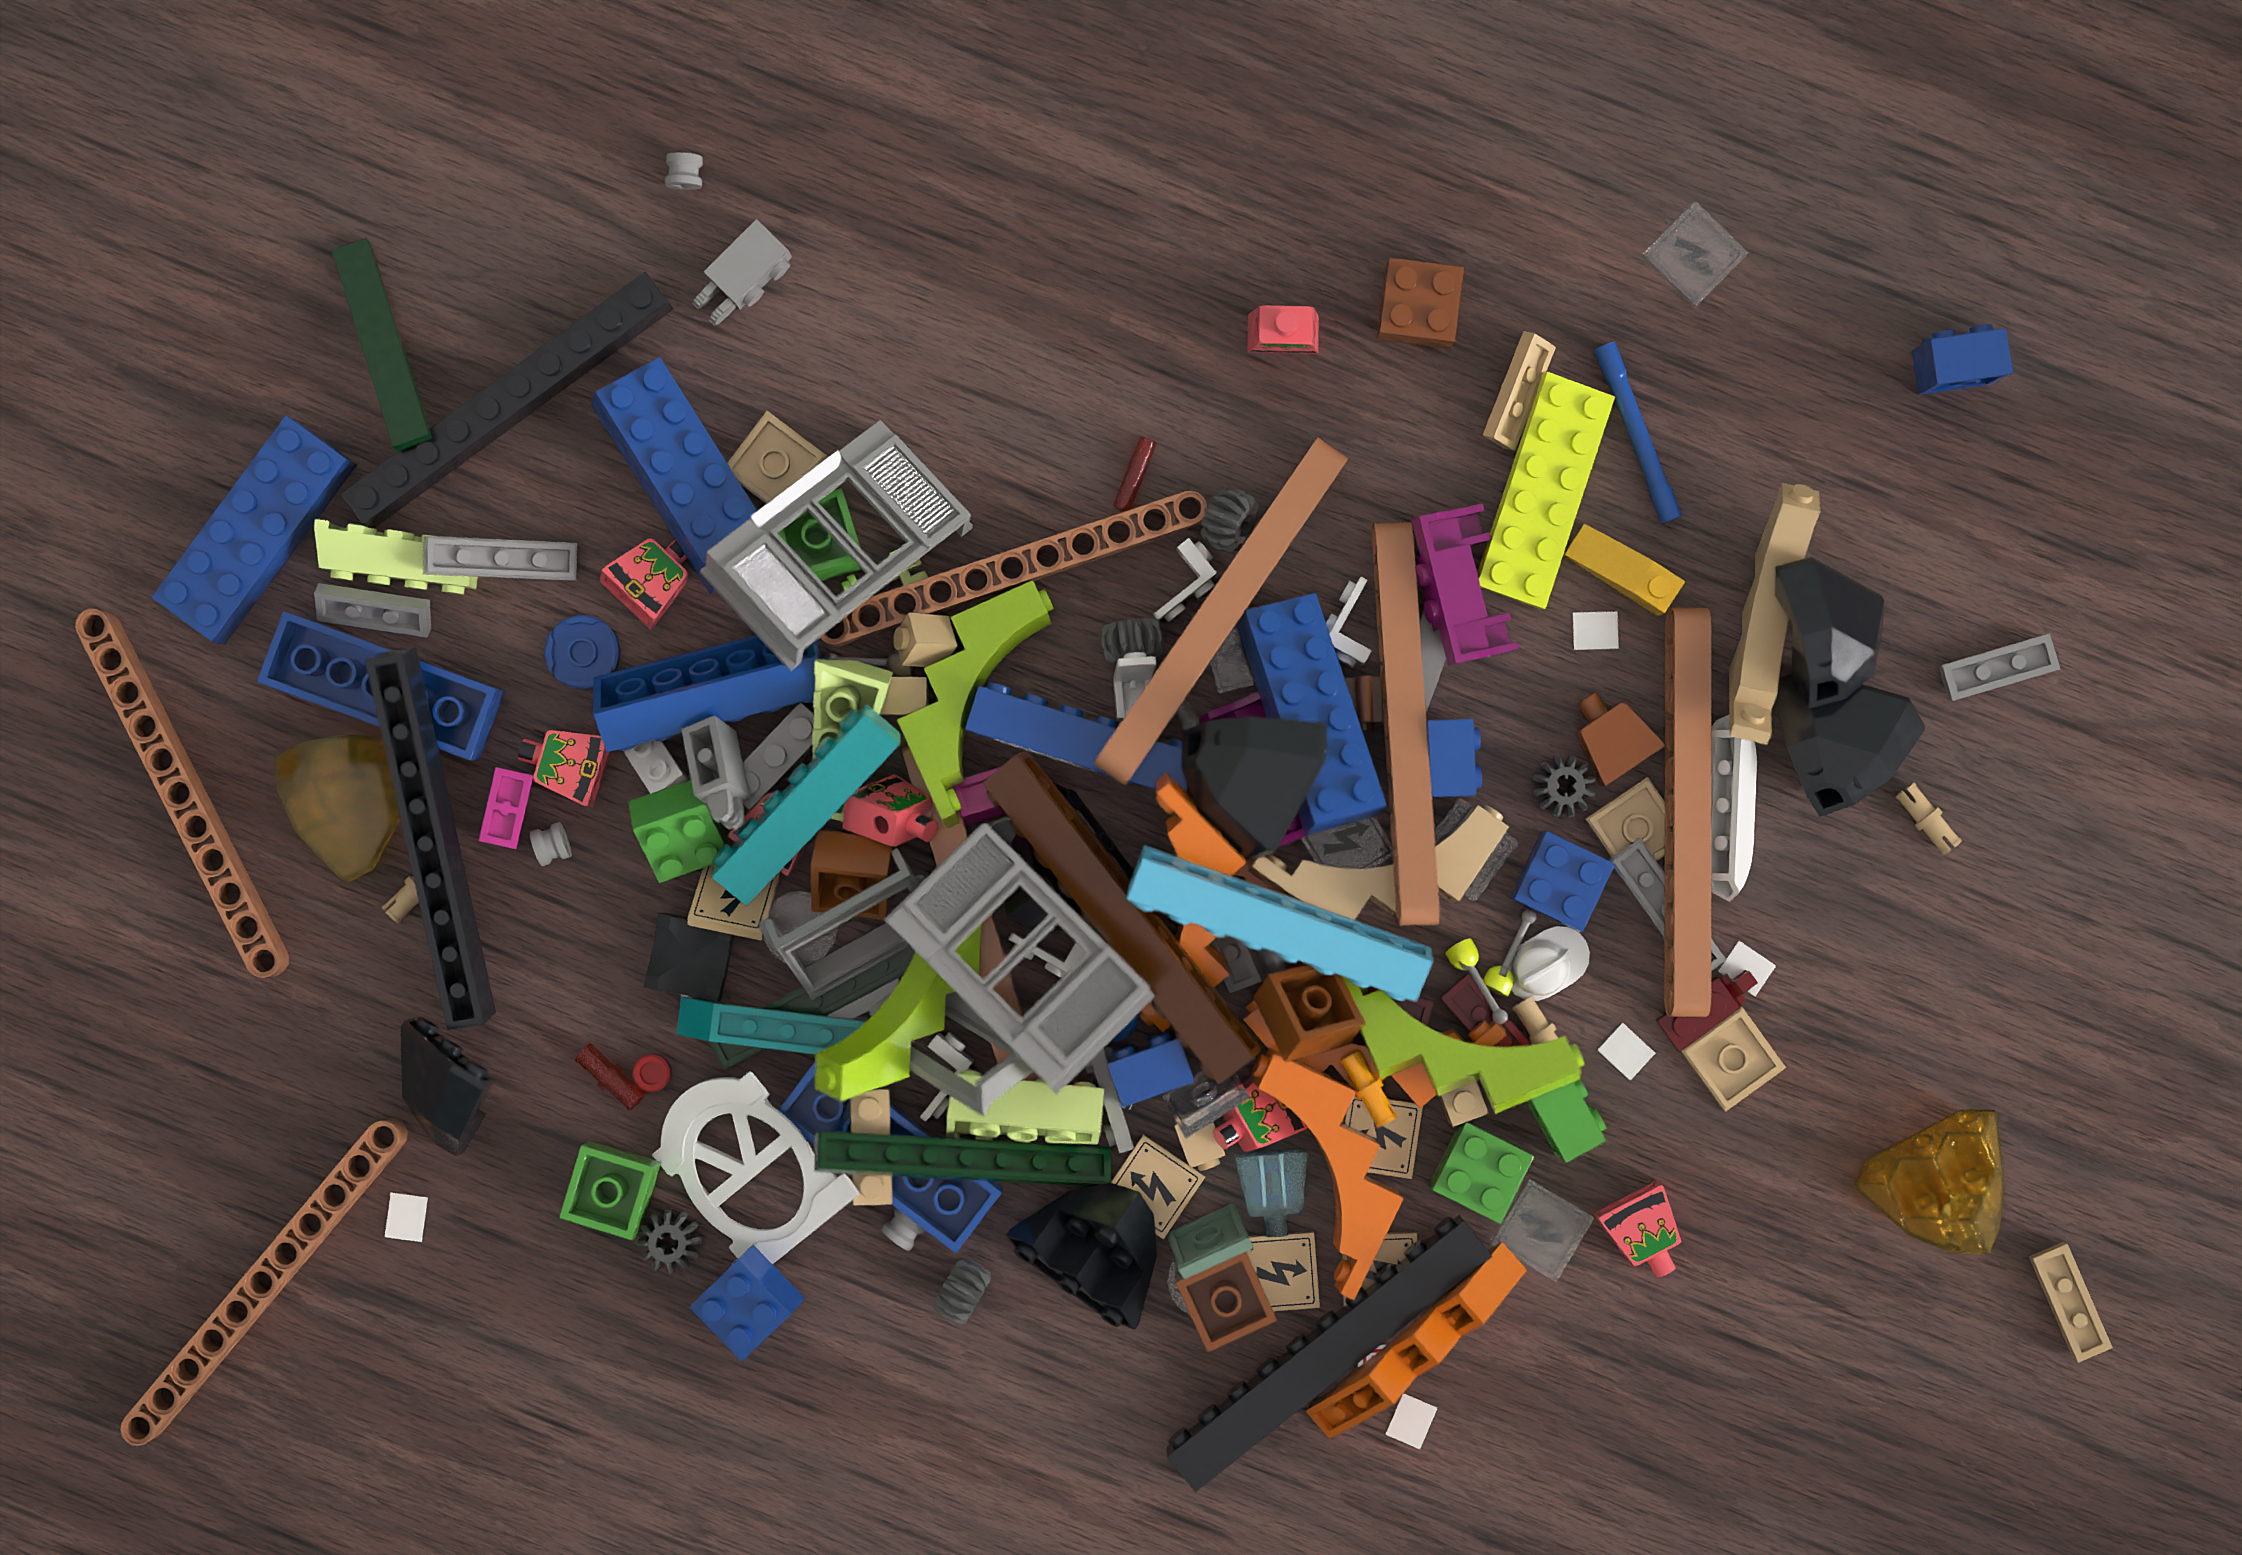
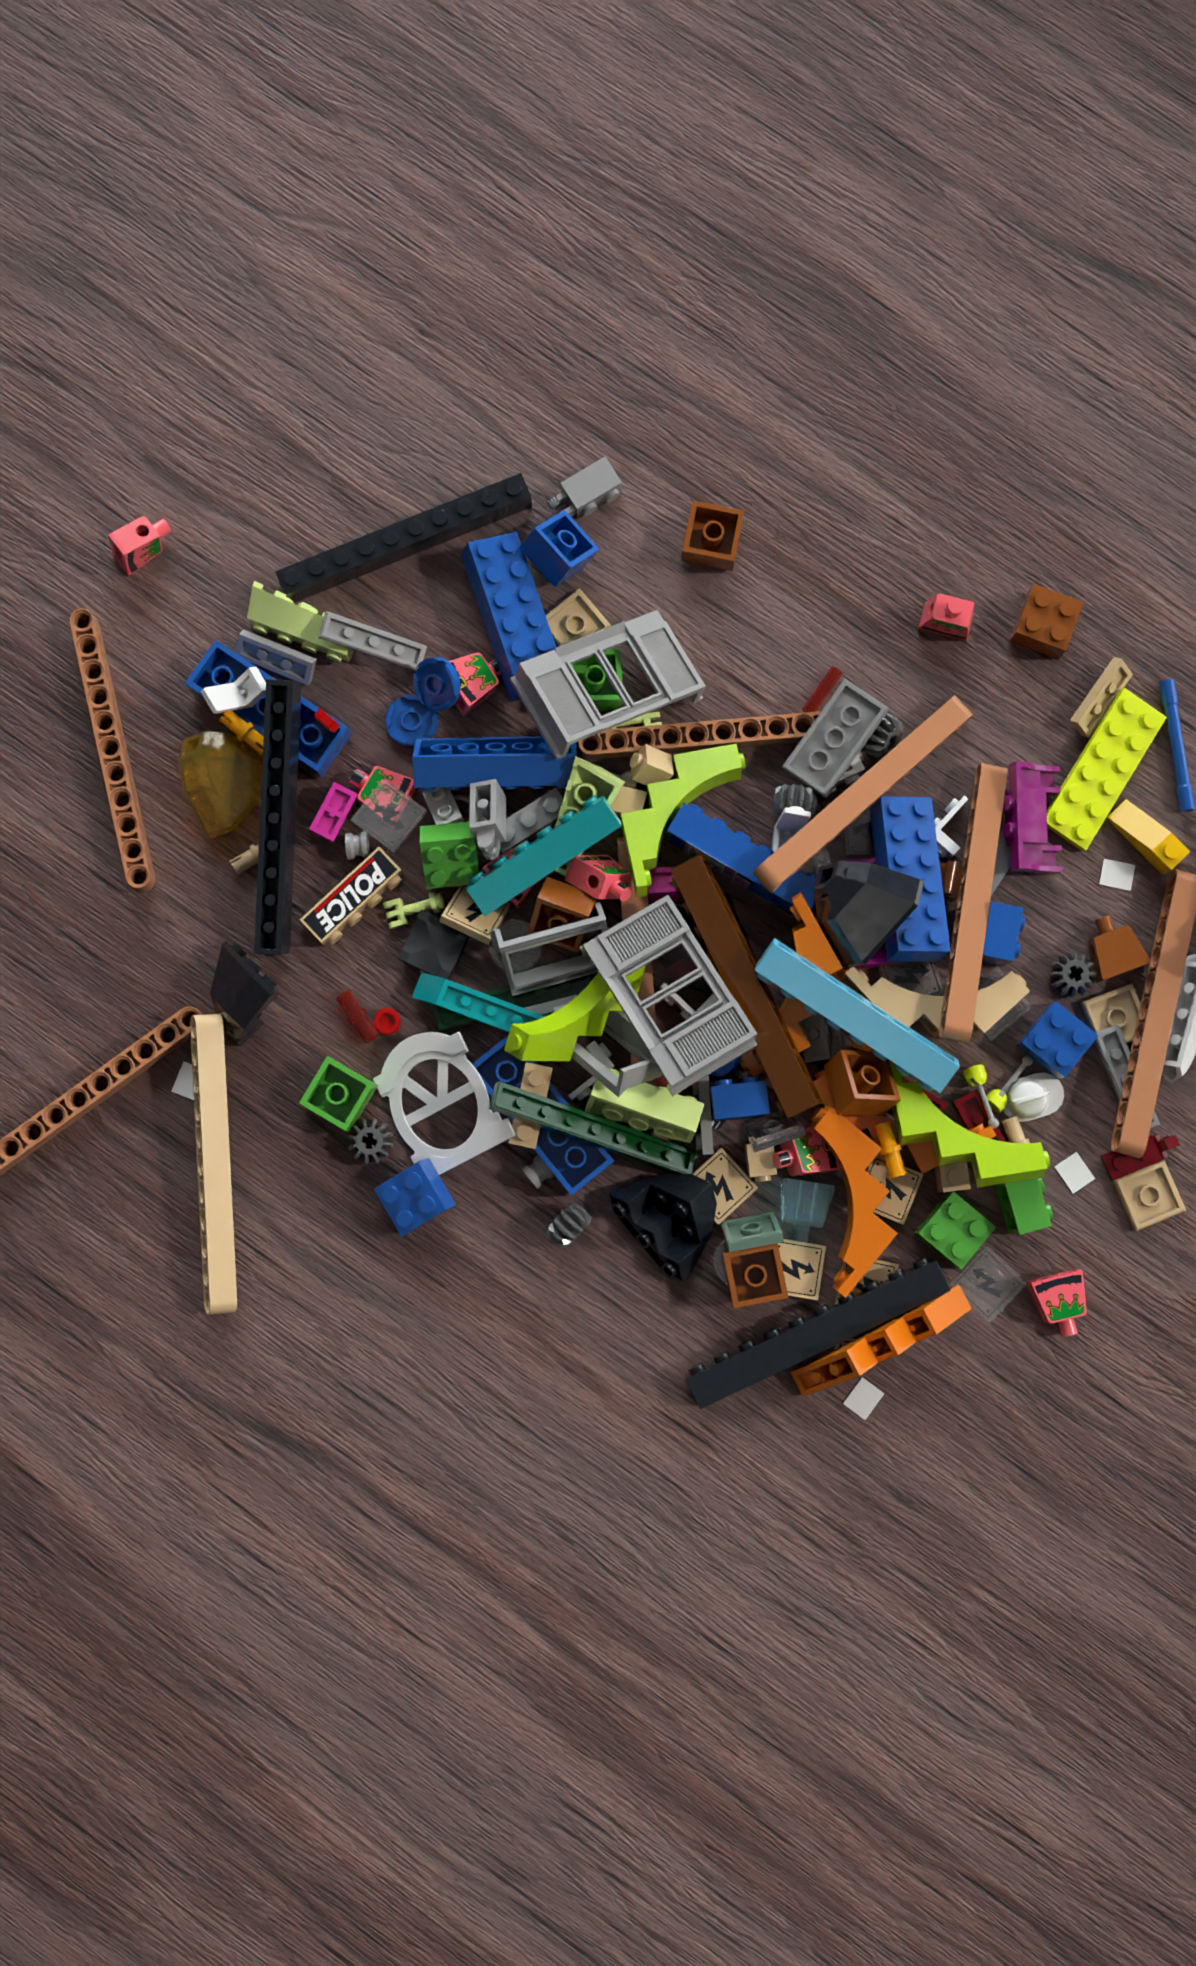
camera: 10 degrees right, 5 degrees down
(142, 496) = (138, 543): none -> coral torso
(254, 530) = (209, 584): blue brick -> none
(329, 685) = (236, 695): none -> white bracket
(352, 728) = (243, 730): none -> light orange pin
(381, 344) = (328, 480): dark green tile -> none
(464, 689) = (326, 720): none -> red tile
(465, 1323) = (213, 1164): none -> tan beam
(561, 916) = (352, 896): none -> brick
(582, 796) = (388, 815): none -> clear tile
(602, 597) = (436, 683): none -> blue tile
(676, 896) = (434, 902): none -> yellowish green hinge
(683, 171) = (562, 415): light grey wheel -> none
(724, 365) = (559, 548): none -> blue brick
(931, 294) = (712, 535): none -> dark orange brick
(1166, 542) = (835, 738): none -> light grey tile
(1743, 959) = (1171, 1126): white sticker -> none

